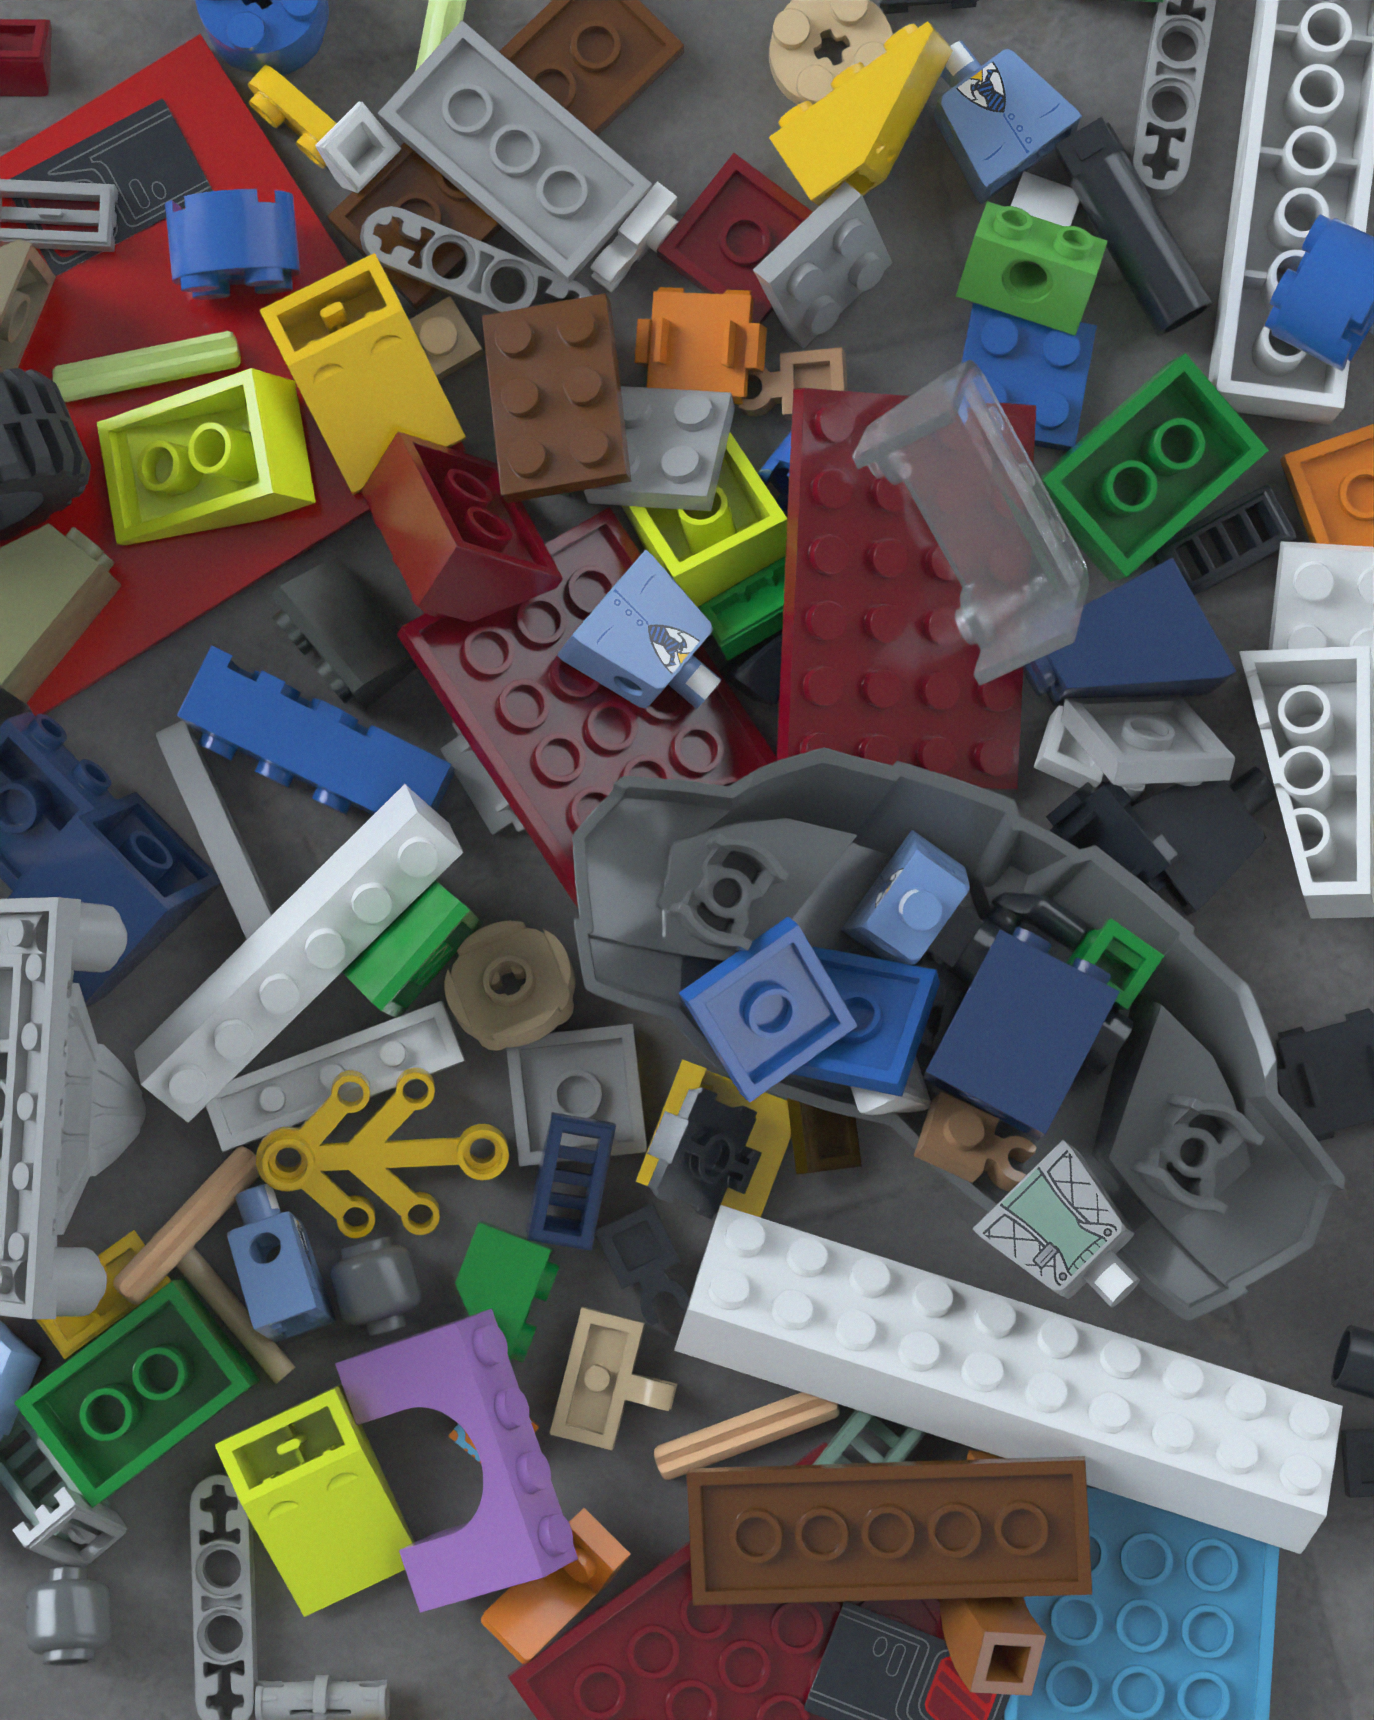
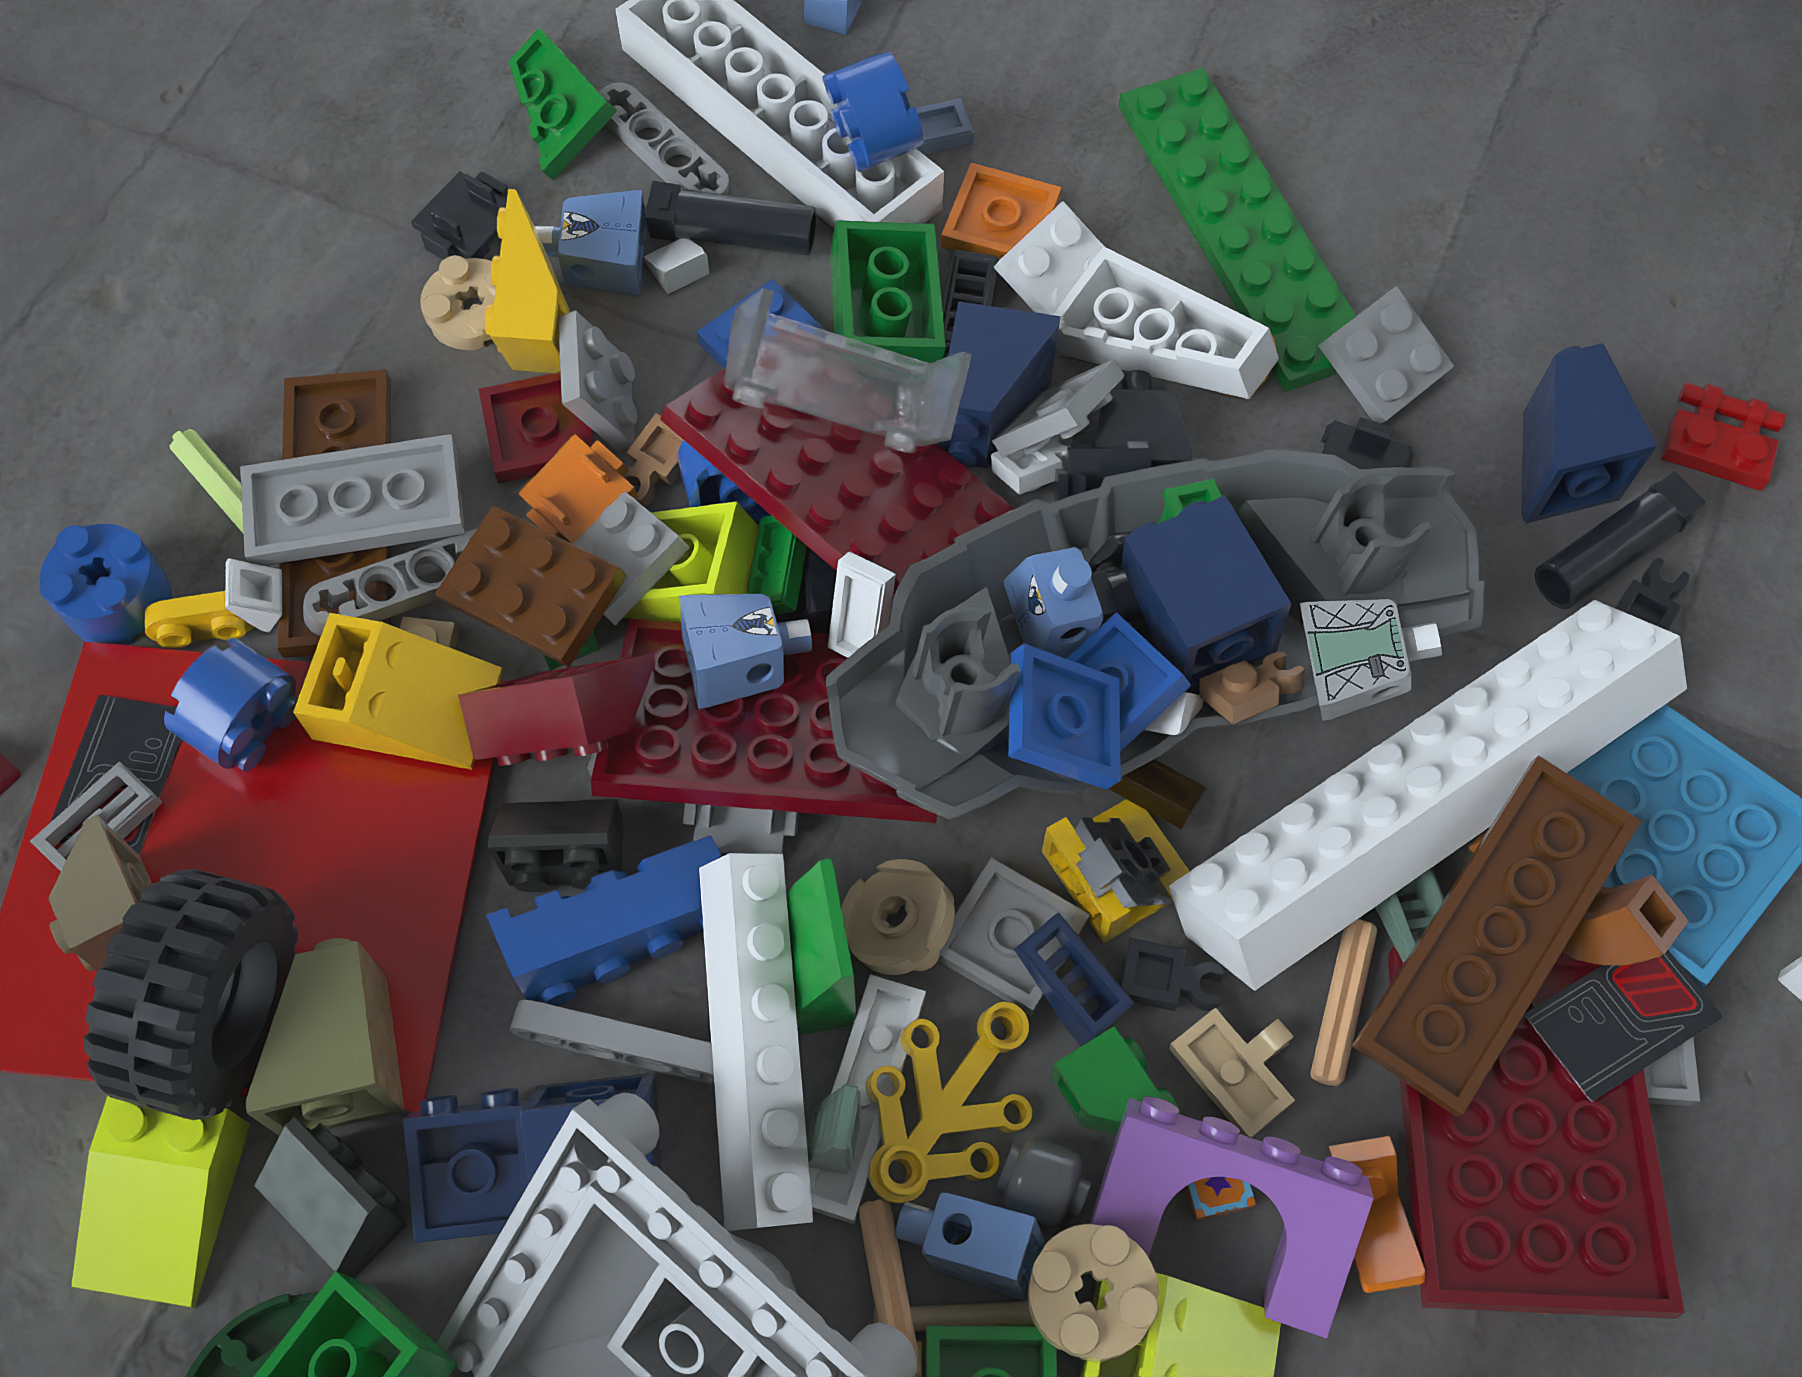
camera: 55 degrees left, 20 degrees down
(147, 366) = (266, 822): yellowish green axle -> none
(207, 458) = (356, 840): neon yellow slope -> none
(258, 1407) = (1078, 1327): none -> tan plate
(269, 1084) = (835, 1131): none -> sand green slope
(642, 230) = (474, 470): white plate -> none
(762, 727) = (859, 603): none -> white tile
(1005, 281) = (733, 278): bright green brick -> none

